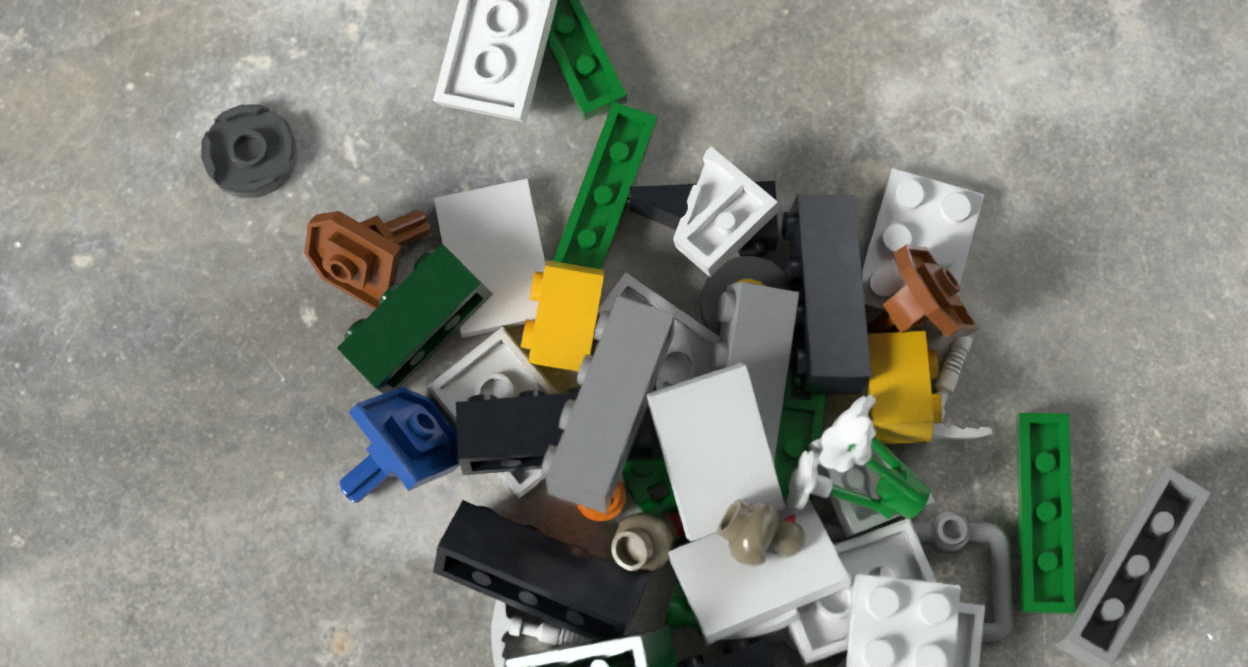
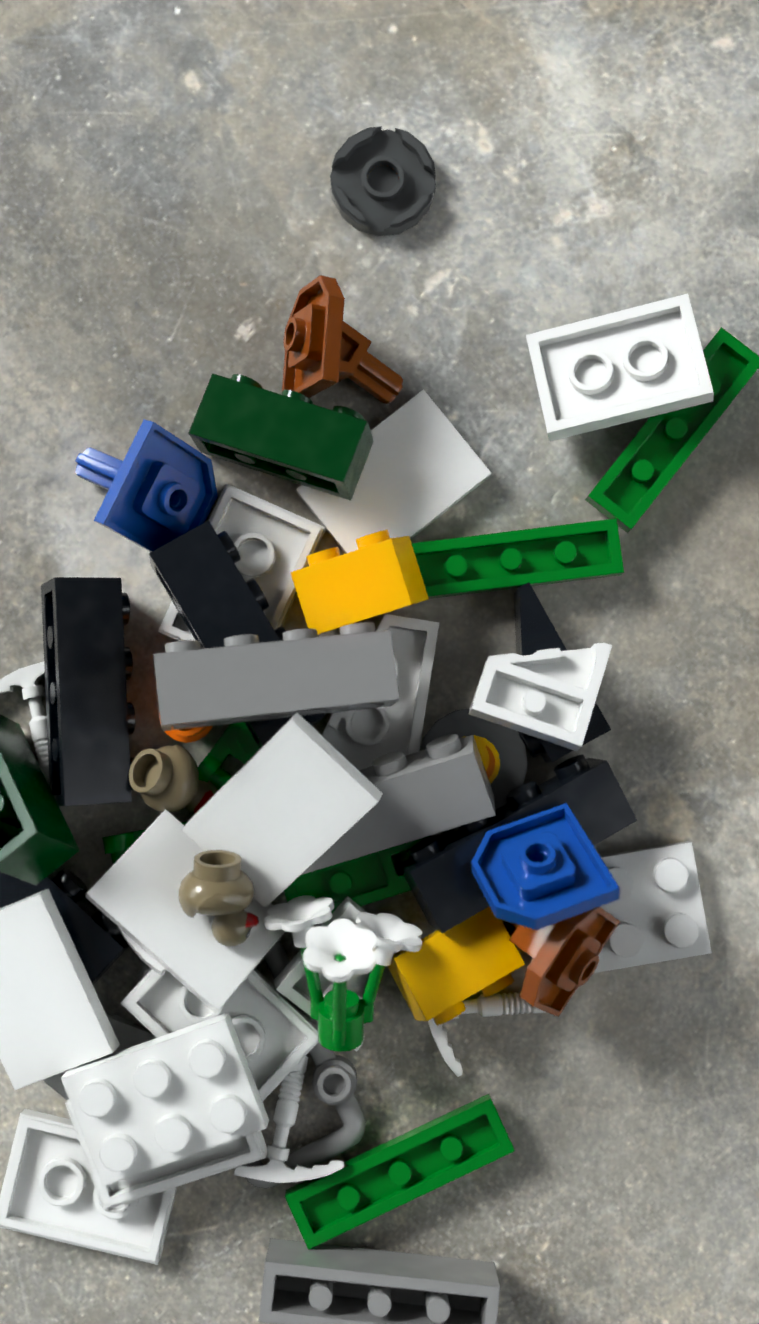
camera: 60 degrees right, 10 degrees up
(857, 271) = (542, 870): none -> blue piece
(999, 607) = (285, 1118): none -> white piece

